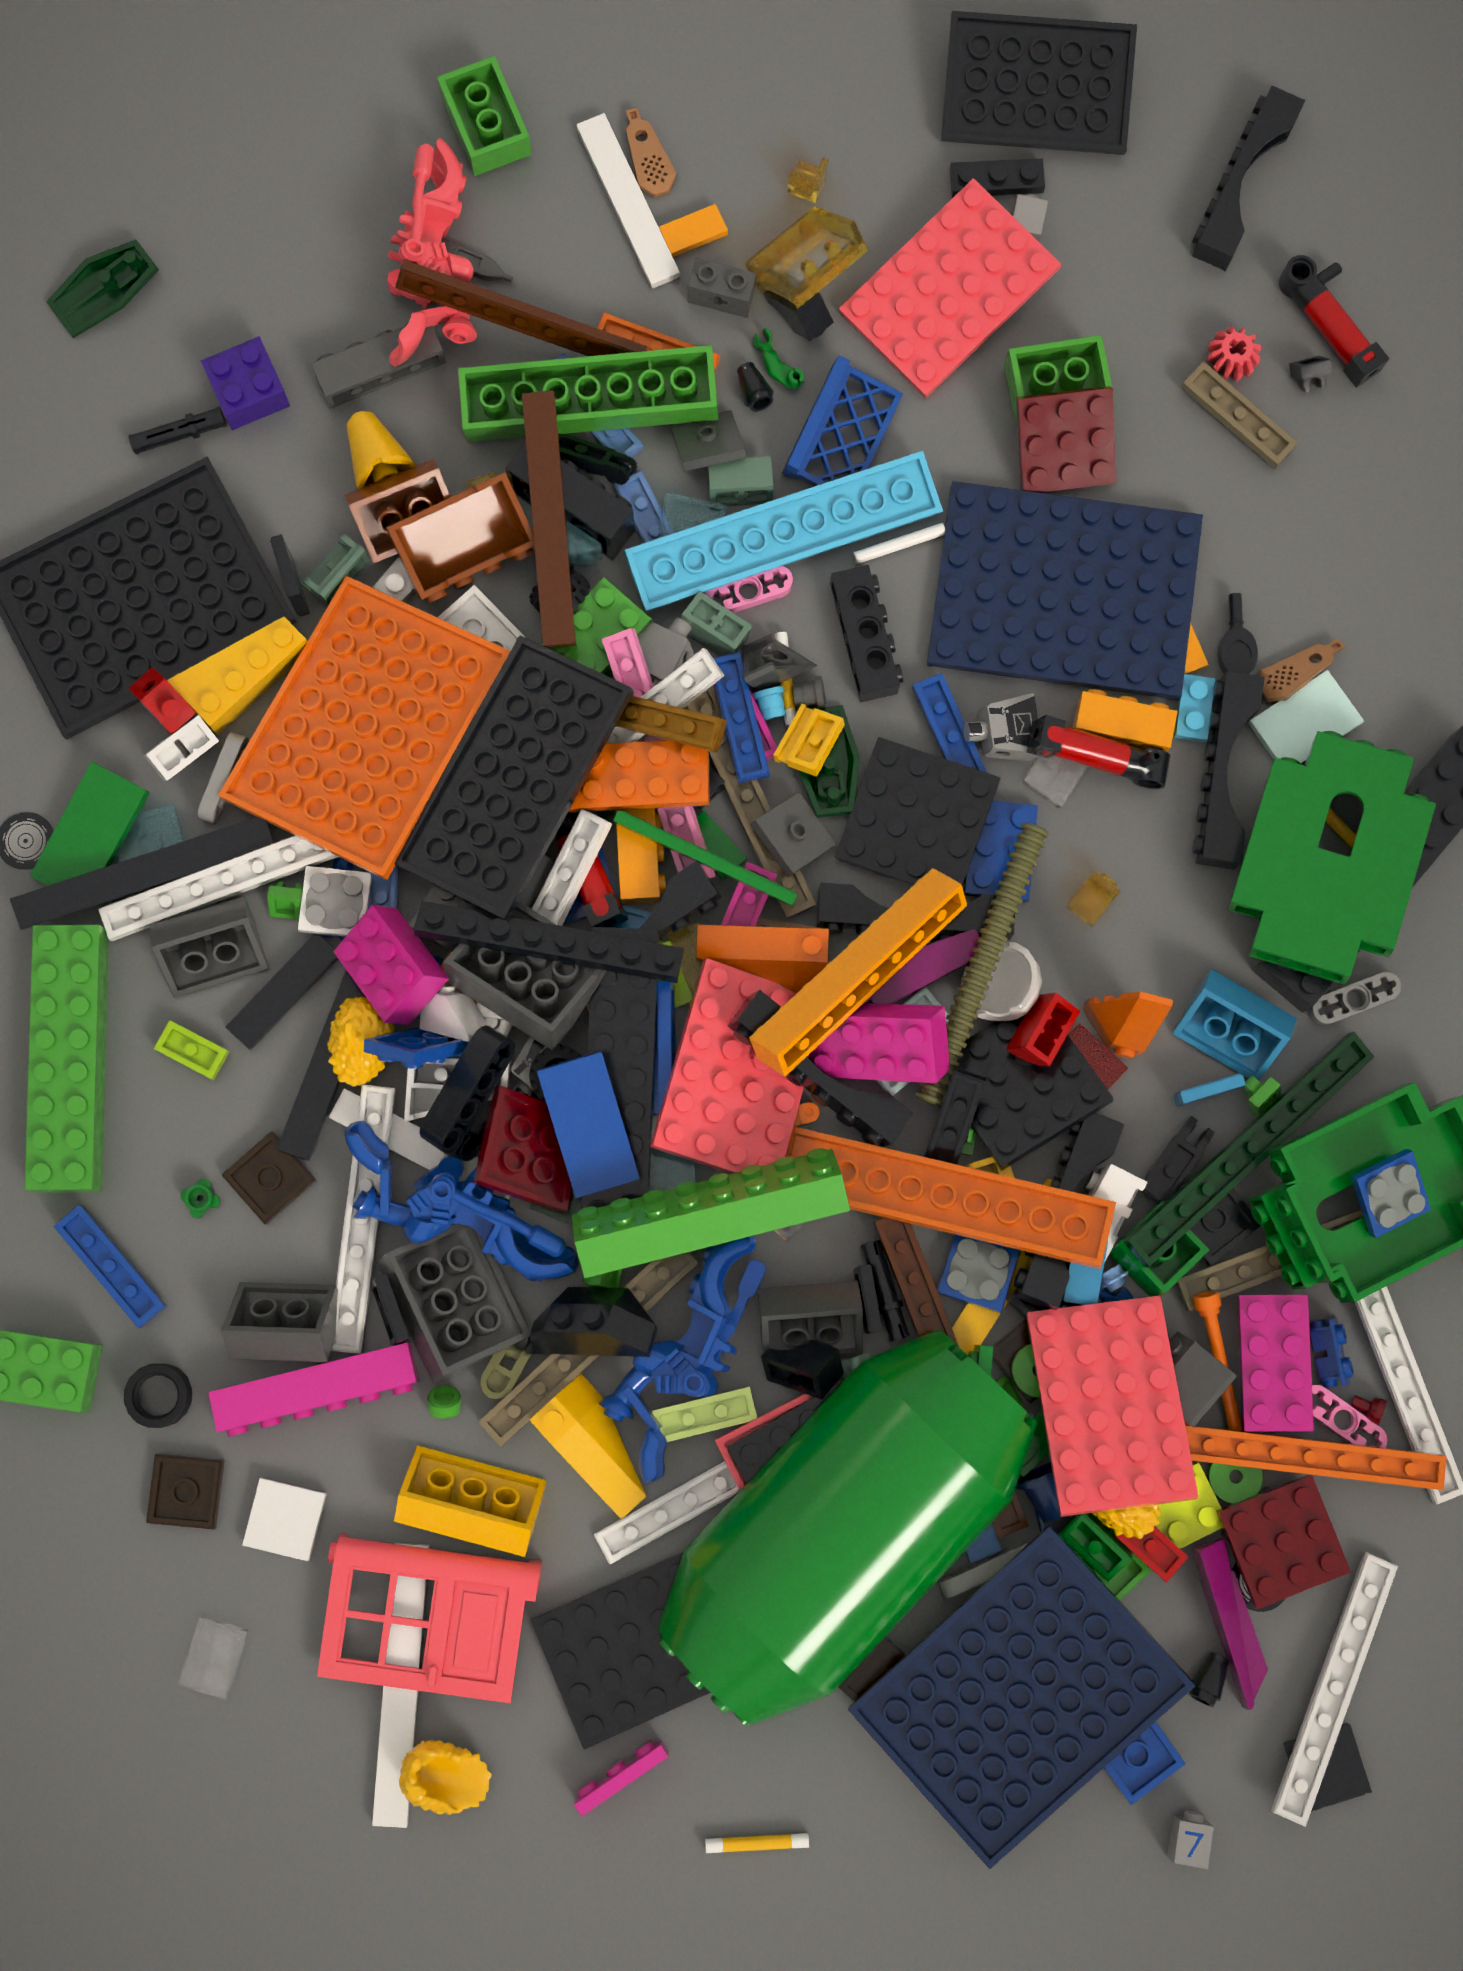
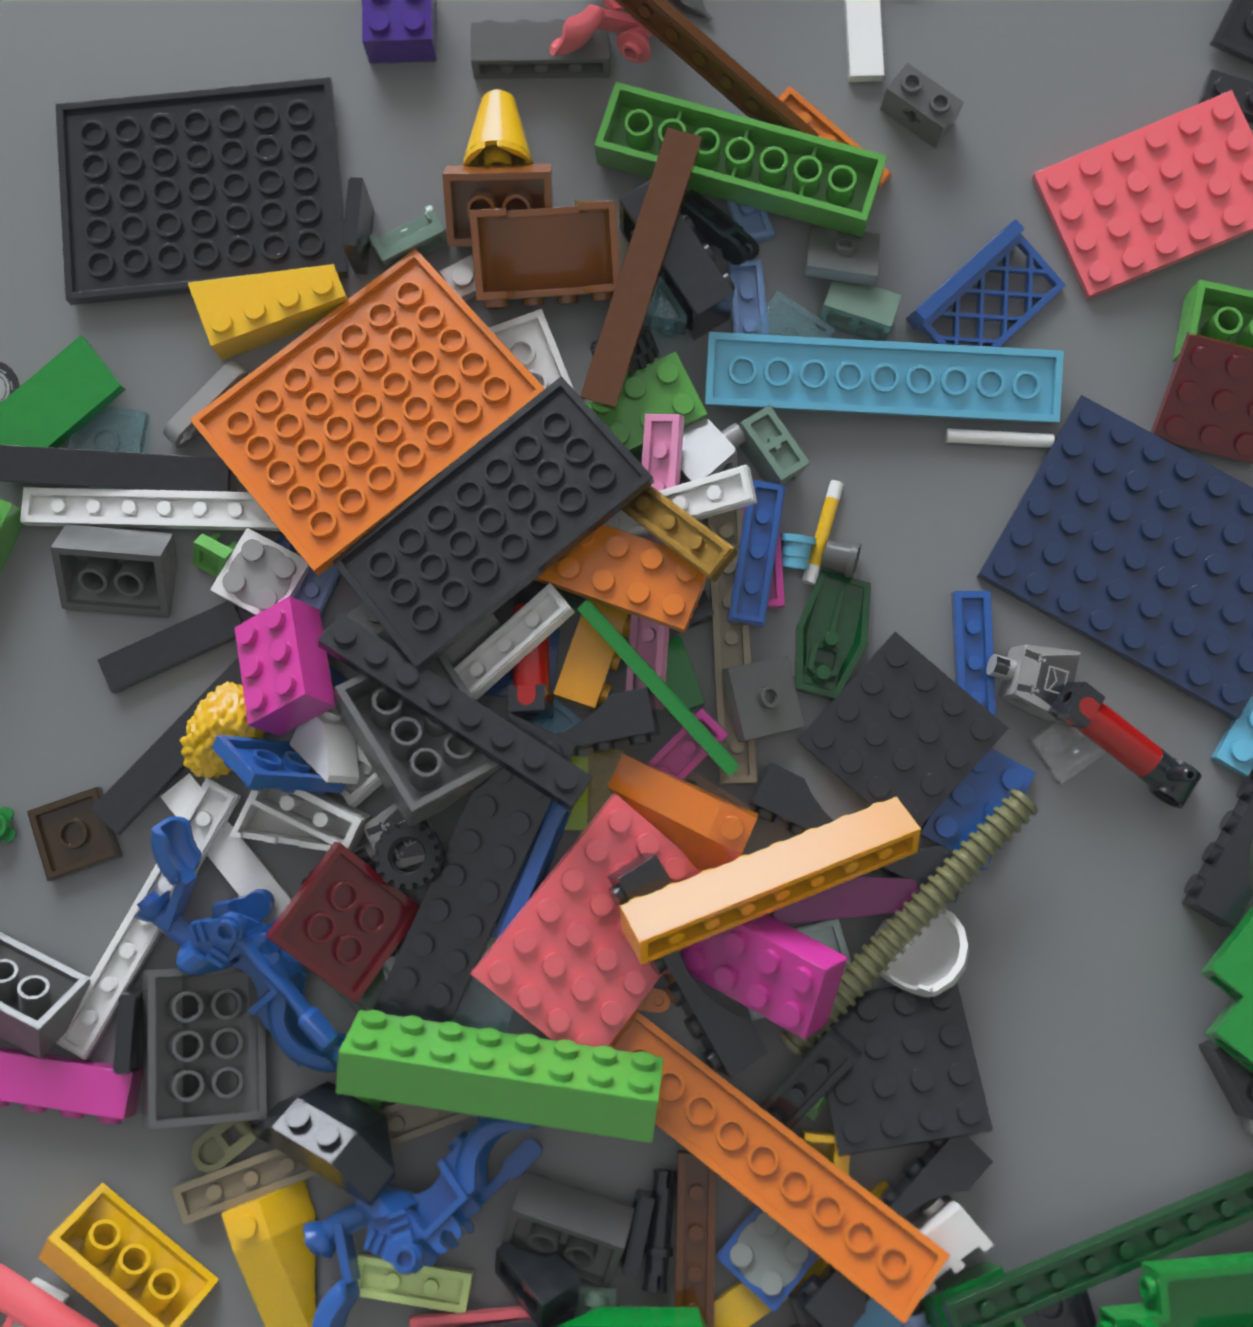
camera: 30 degrees right, 0 degrees up
(162, 700) = (174, 303): red torso -> none
(181, 429) = (325, 41): black pin -> none
(181, 748) = (174, 357): white brick -> none
(191, 1050) = (53, 669): lime plate -> none
(444, 1402) = (147, 1149): bright green tile -> none
(466, 1093) = (299, 835): black beam -> none
(588, 1124) = (415, 922): blue tile -> none
(694, 230) = (916, 39): light orange tile -> none
(755, 389) = (913, 220): black cone -> none
(771, 663) = (814, 509): dark grey slope -> none
(773, 591) = (846, 435): bright pink beam -> none
(782, 373) = (943, 210): green arm -> none
(807, 255) = (1025, 104): clear yellow window -> none
(808, 180) = (1054, 32): clear yellow panel -> none
(808, 320) = (995, 156): black arch -> none
(809, 740) = (820, 605): yellow plate -> none
(869, 682) = (909, 570): black brick -> none
(1043, 1029) = (946, 1022): red brick -> none
(1094, 897) = (1057, 896): clear yellow bracket -> none
(1100, 1058) = (994, 1074): clear red tile -> none
(1125, 720) = (1168, 720): light orange brick -> none
(1128, 1020) = (1043, 1054): orange wedge -> none
(1175, 1163) = (1032, 1224): black hinge -> none
(1209, 1089) = (1100, 1159): dark azure tile -> none
(1235, 1026) = (1157, 1101): dark azure slope -> none
(1261, 1095) = (1156, 1190): bright green tile -> none

